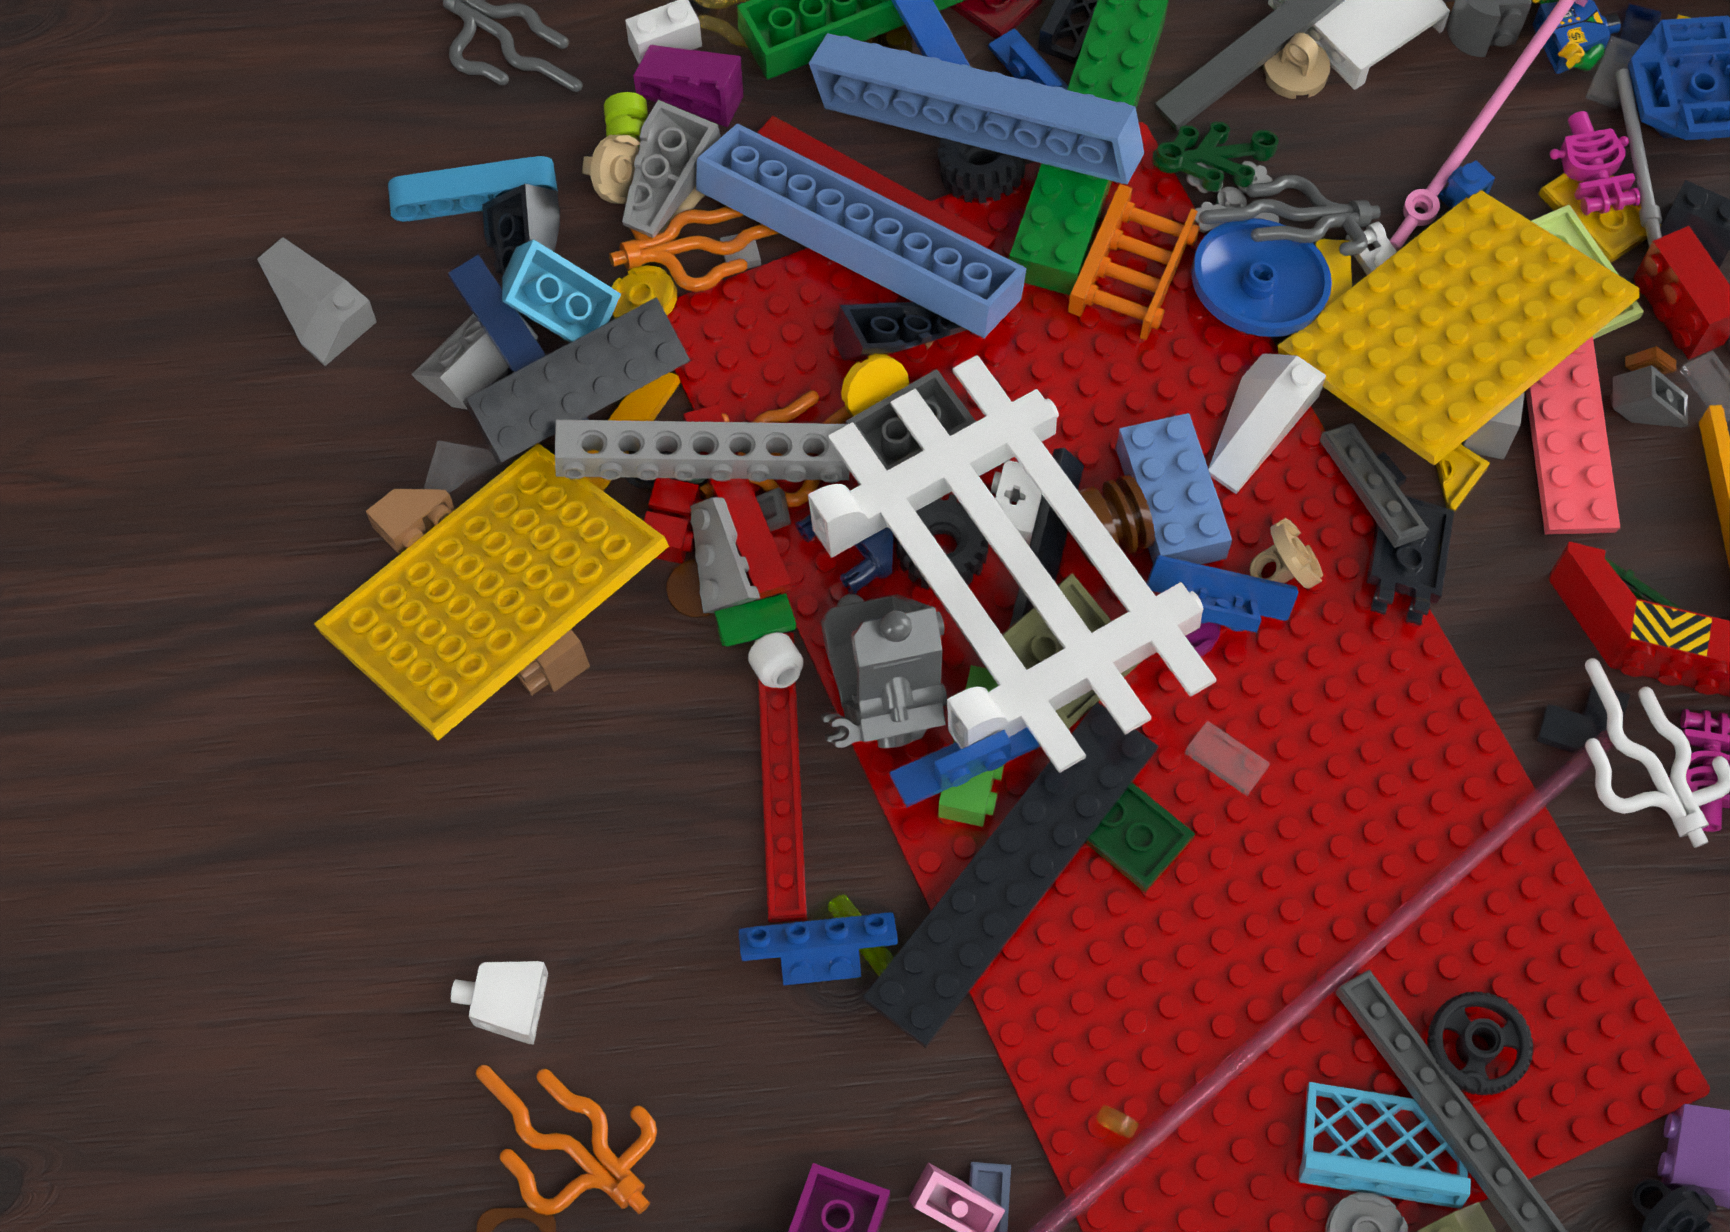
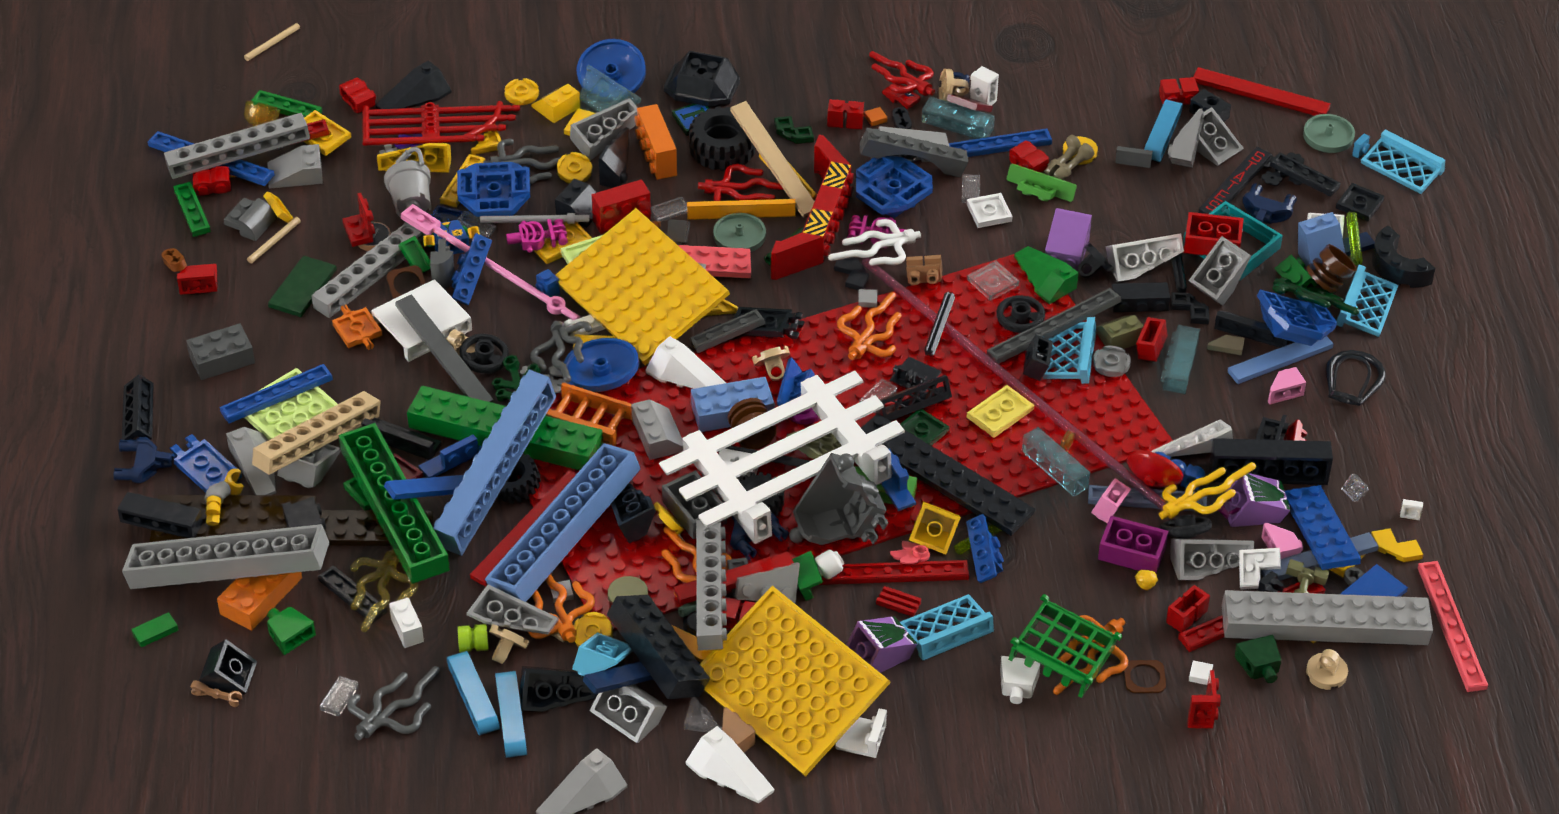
camera: 90 degrees left, 20 degrees down
(337, 514) = (723, 761): none -> white wedge
(385, 728) = (864, 735): none -> white bracket
(497, 1044) = (1050, 662): none -> green window
(521, 131) = (473, 693): none -> dark azure beam
(591, 753) = (882, 642): none -> medium lavender slope
(615, 887) = (951, 635): none -> medium azure fence
(692, 81) = (446, 605): magenta wedge -> none
(719, 342) = (626, 587): none -> olive tile
(720, 764) = (900, 599): none -> red tile
(823, 809) = (911, 553): none -> coral plate
(878, 853) = (934, 527): none -> yellow slope
(1050, 1092) = (1056, 461): none -> clear light blue brick
(1105, 372) = (656, 429): none -> light grey slope
(1201, 818) = (918, 400): none -> black fence
(1201, 993) = (1000, 411): none -> light yellow tile
(1277, 114) = (483, 358): none -> black wheel
(1286, 828) = (913, 373): none -> black hinge
(1342, 1067) = (1037, 357): none -> black brick
(1372, 728) = (863, 342): none -> orange plant
(1427, 873) = (939, 324): none -> axle
(1480, 60) = (469, 269): none -> blue bracket
(1499, 741) = (867, 298): none -> light grey tile
(1585, 993) = (993, 280): none -> clear tile
(1593, 851) = (919, 273): none -> medium nougat hips
(1613, 1105) = (1047, 274): none -> green wedge
(1668, 512) = (739, 231): none -> sand green piece

